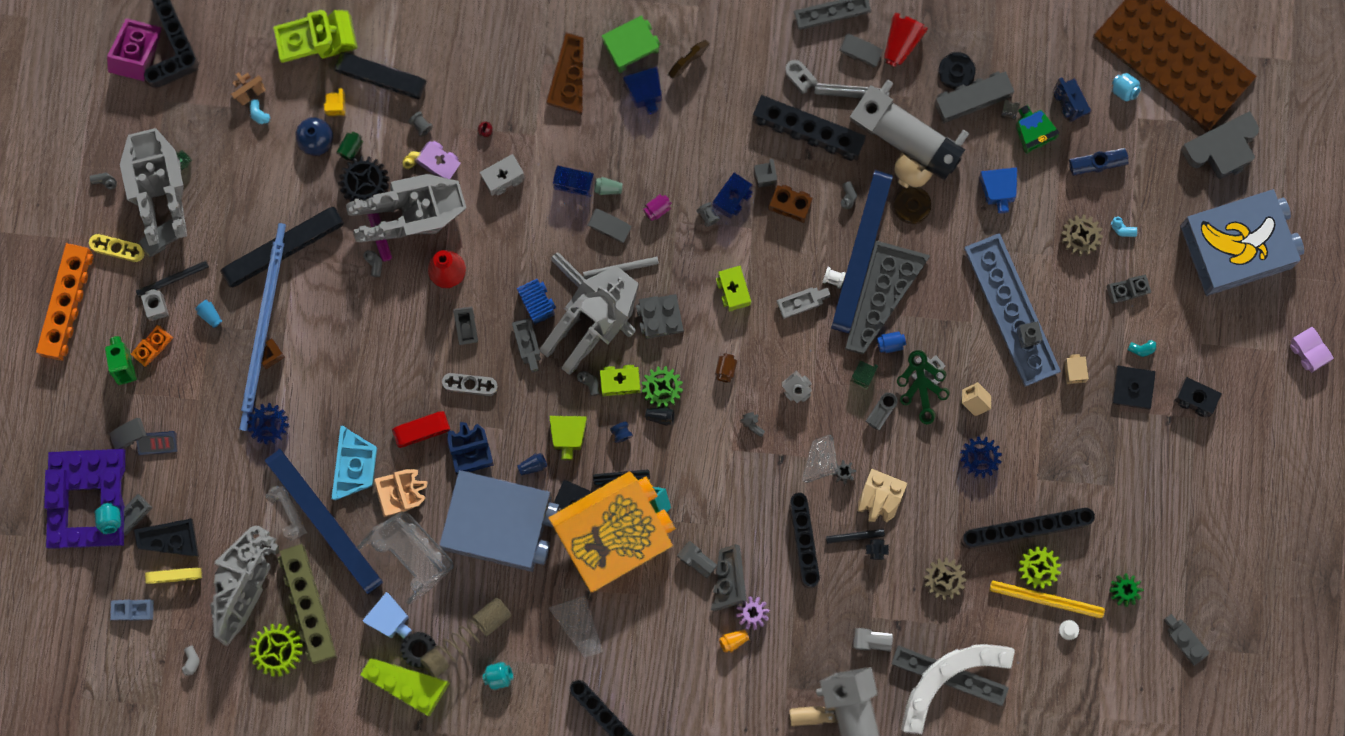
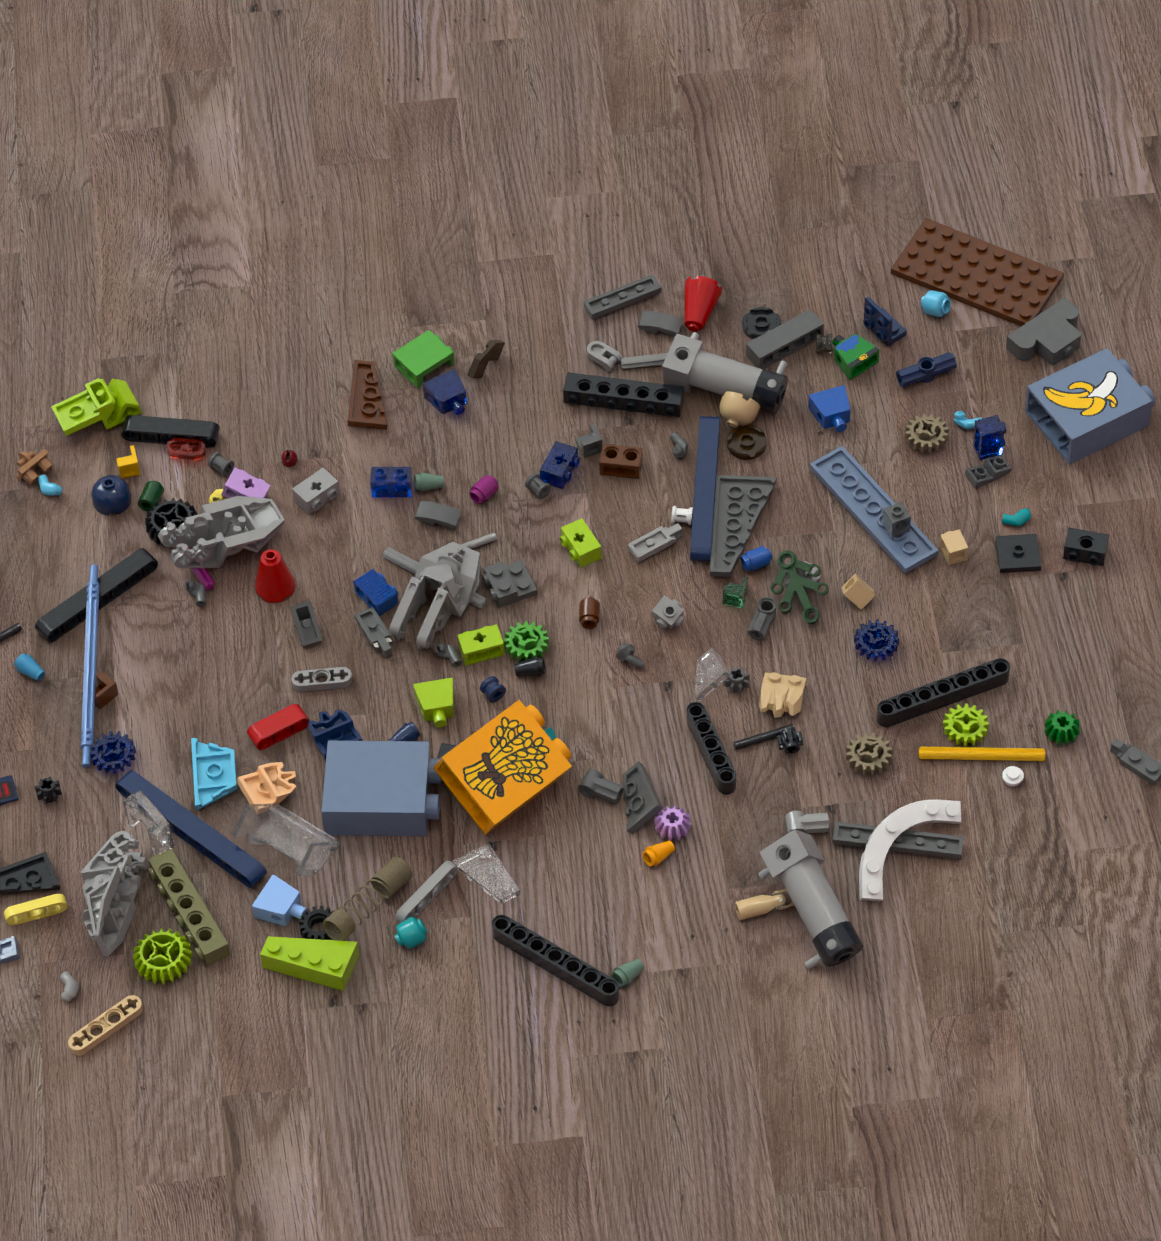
camera: 10 degrees left, 25 degrees down
(209, 452) = (48, 790): none -> black gear
(215, 706) = (103, 1022): none -> tan beam
(392, 98) = (188, 449): none -> clear red plate
(520, 636) = (427, 891): none -> light grey beam
(1138, 258) = (989, 437): none -> clear blue brick

